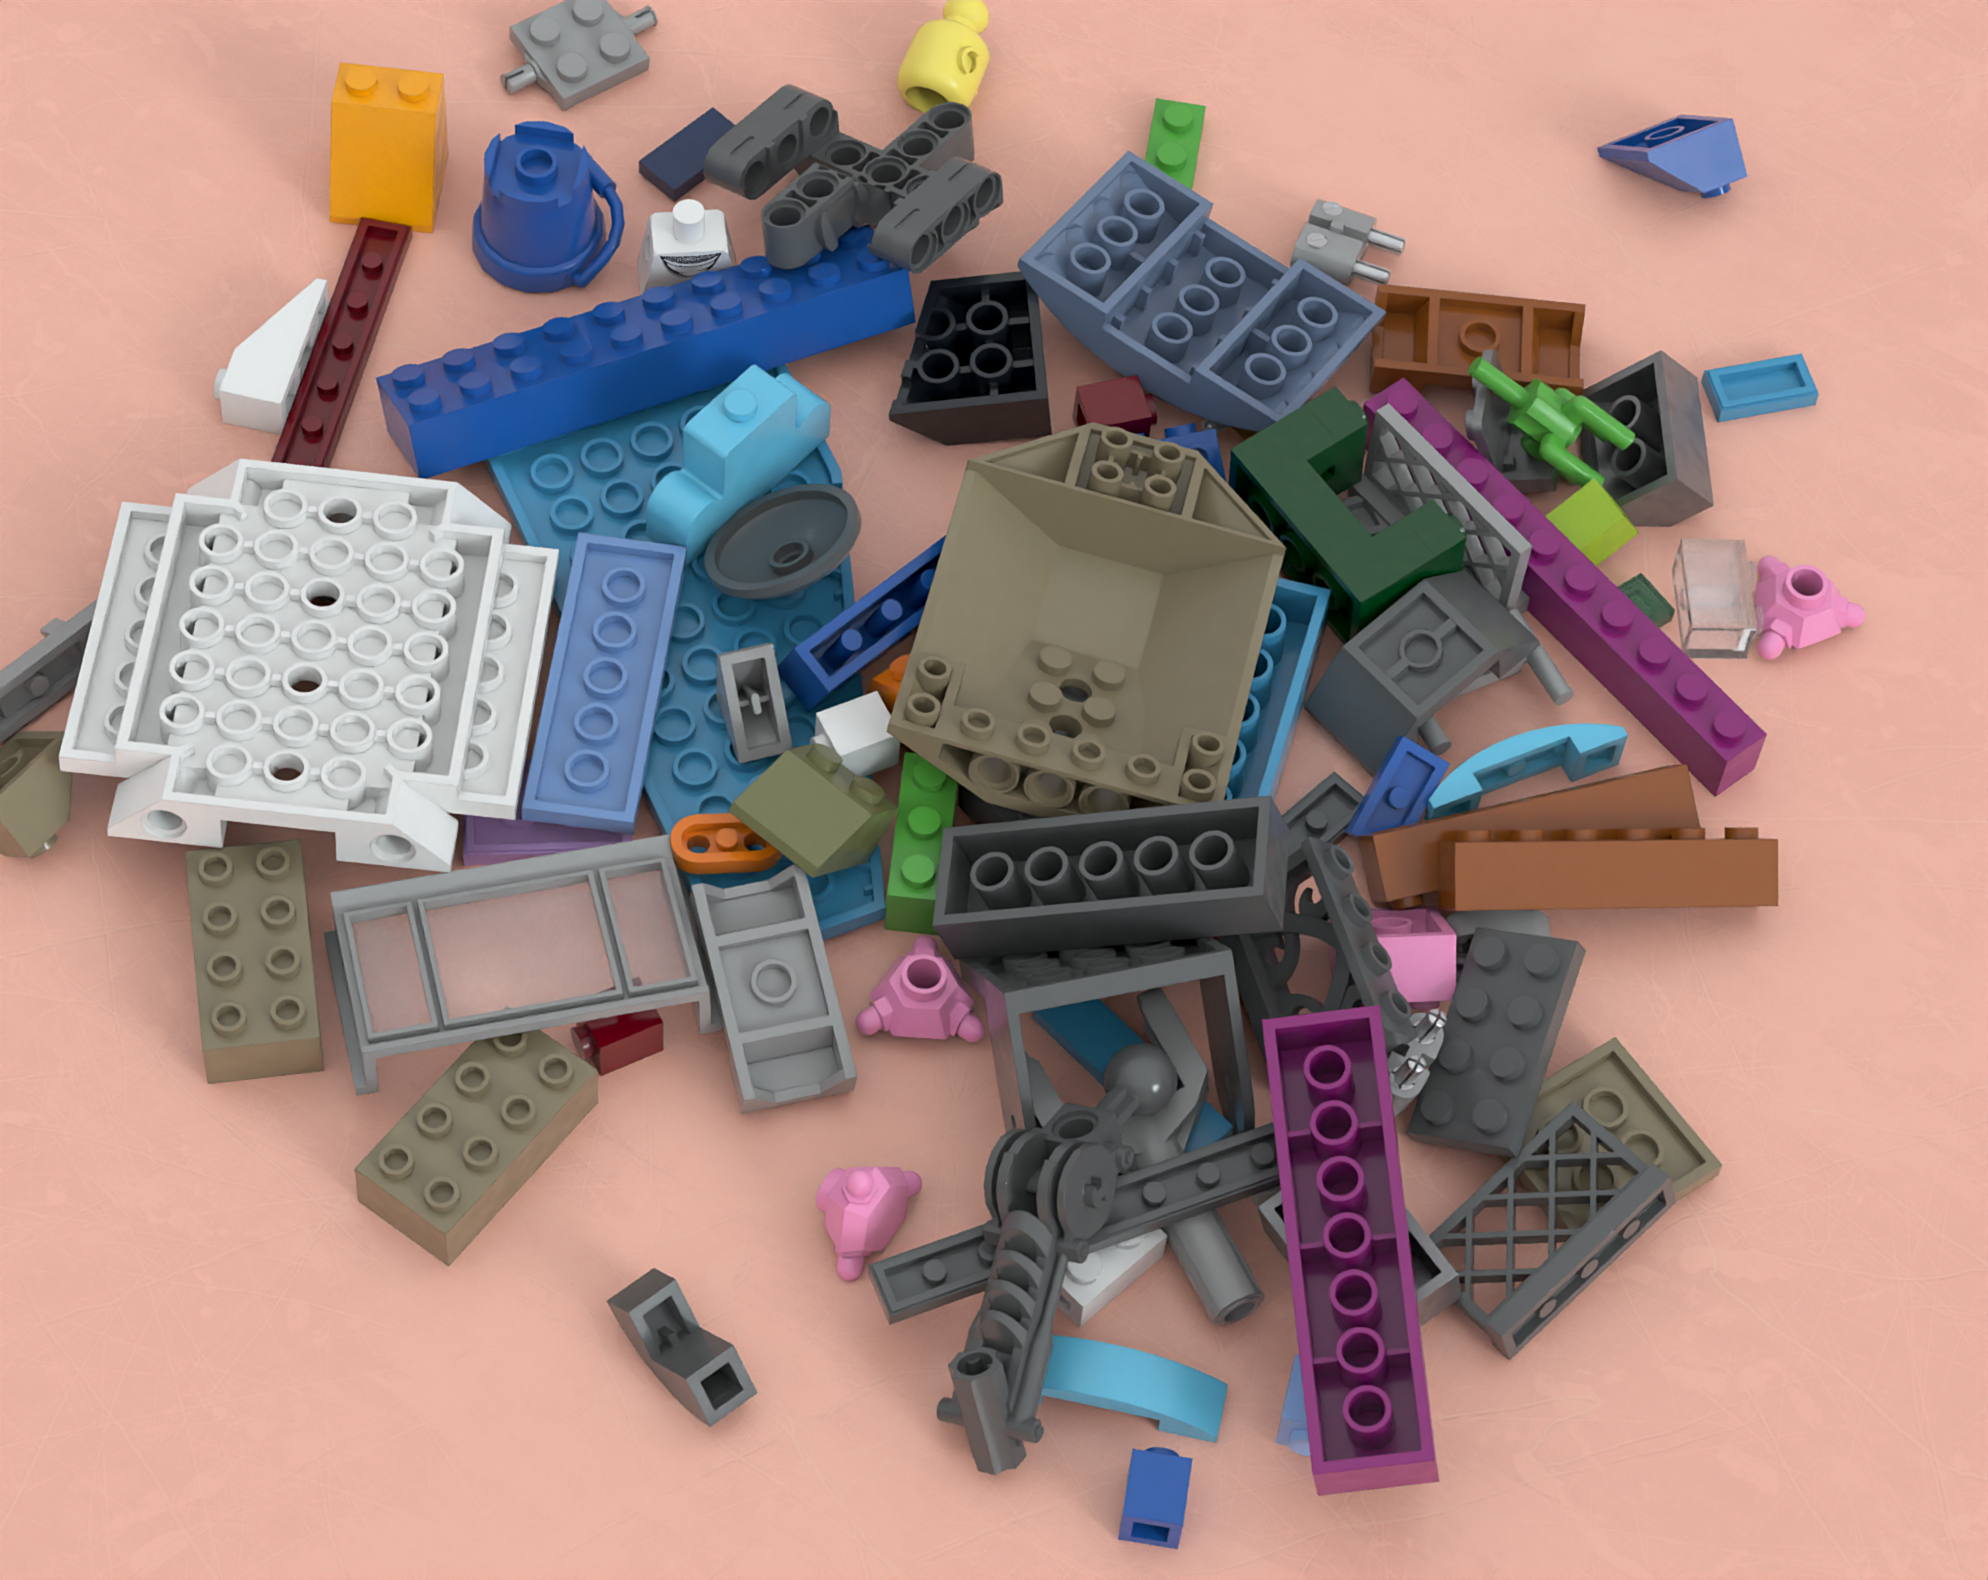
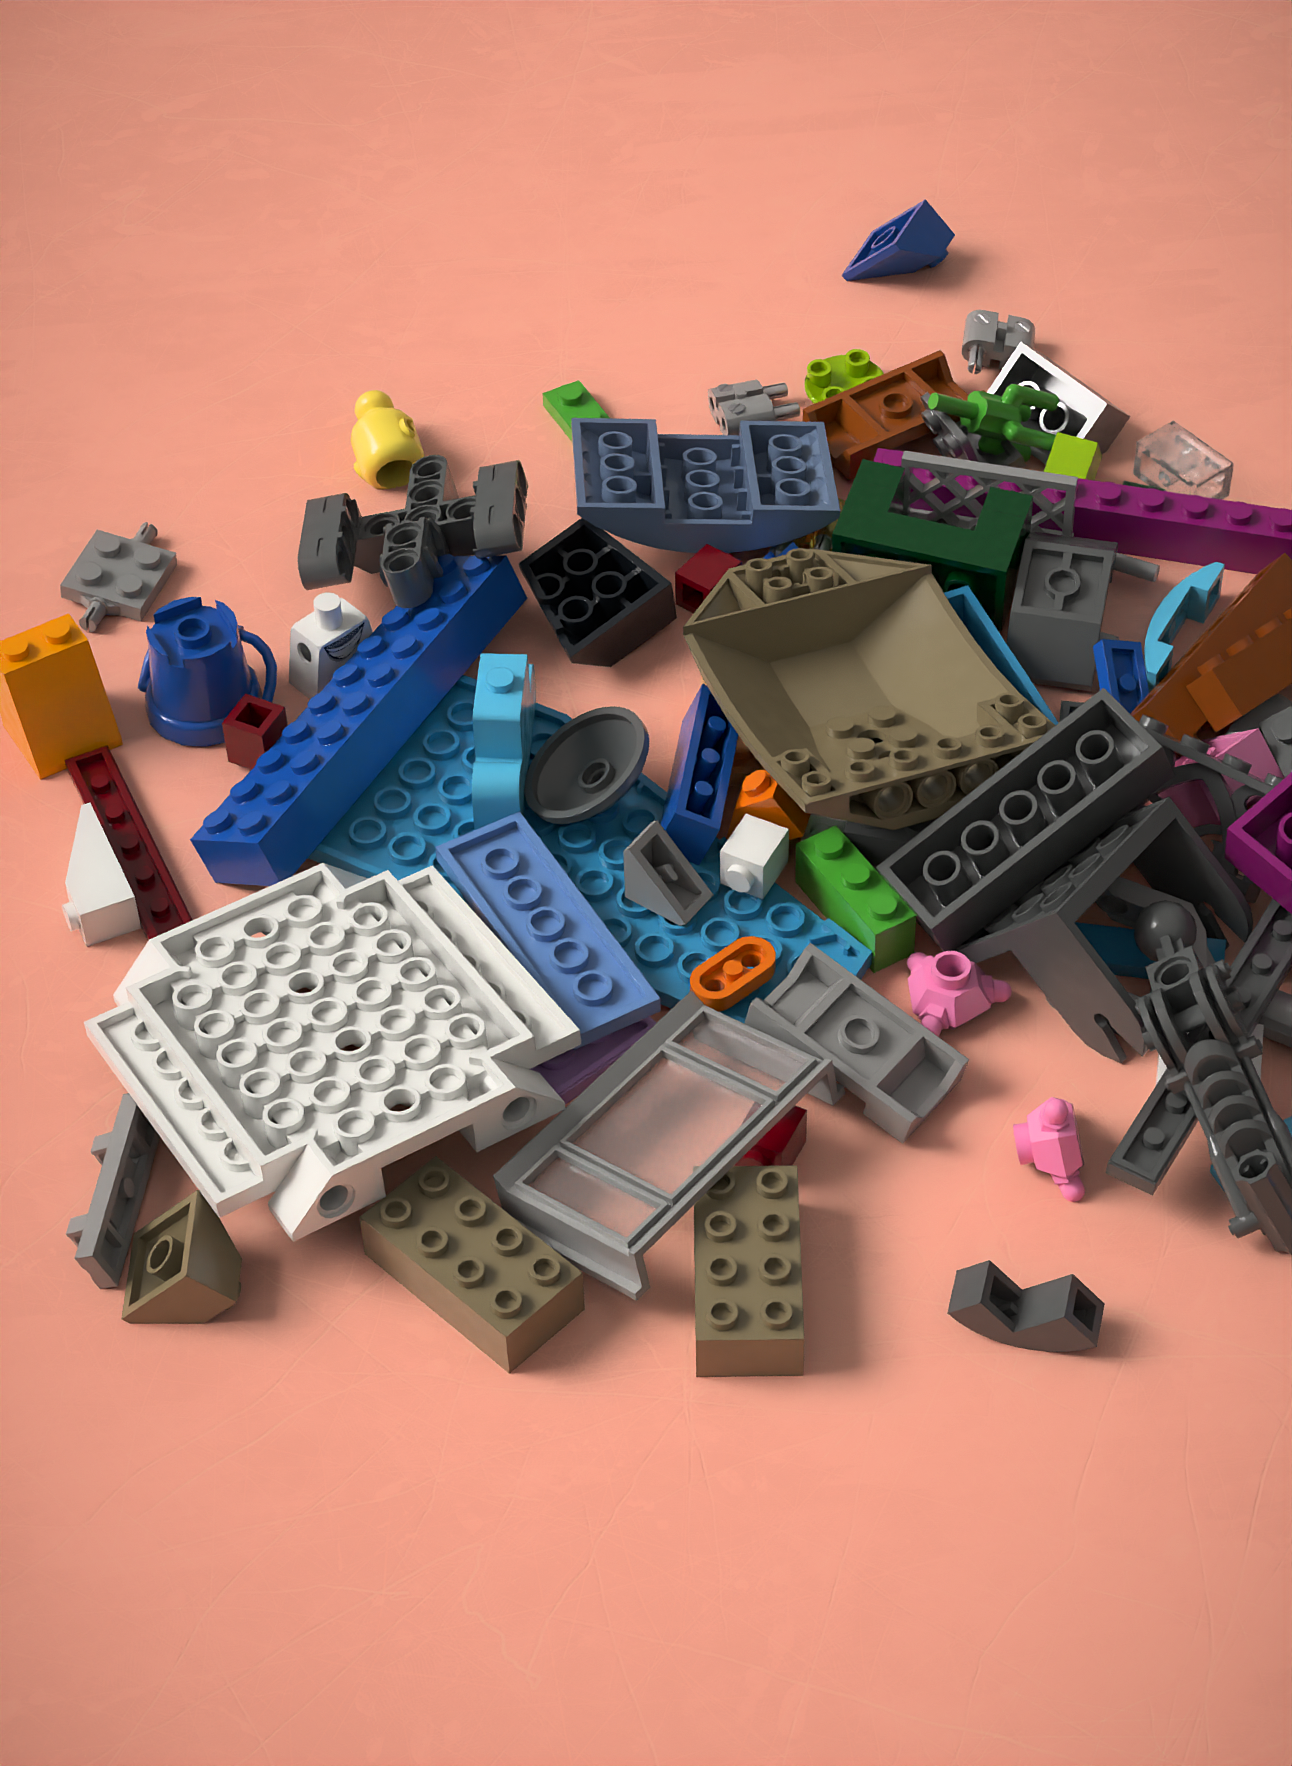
camera: 30 degrees left, 10 degrees down
(535, 296) = (252, 729): none -> dark red brick
(679, 161) = (263, 593): dark blue tile -> none
(816, 810) = (782, 905): olive slope -> none
(1471, 267) = (839, 374): none -> lime dish
(1671, 324) = (990, 339): none -> light grey piece
(1759, 387) = (1081, 344): dark azure tile -> none
(1799, 607) = (1239, 440): bright pink rock -> none

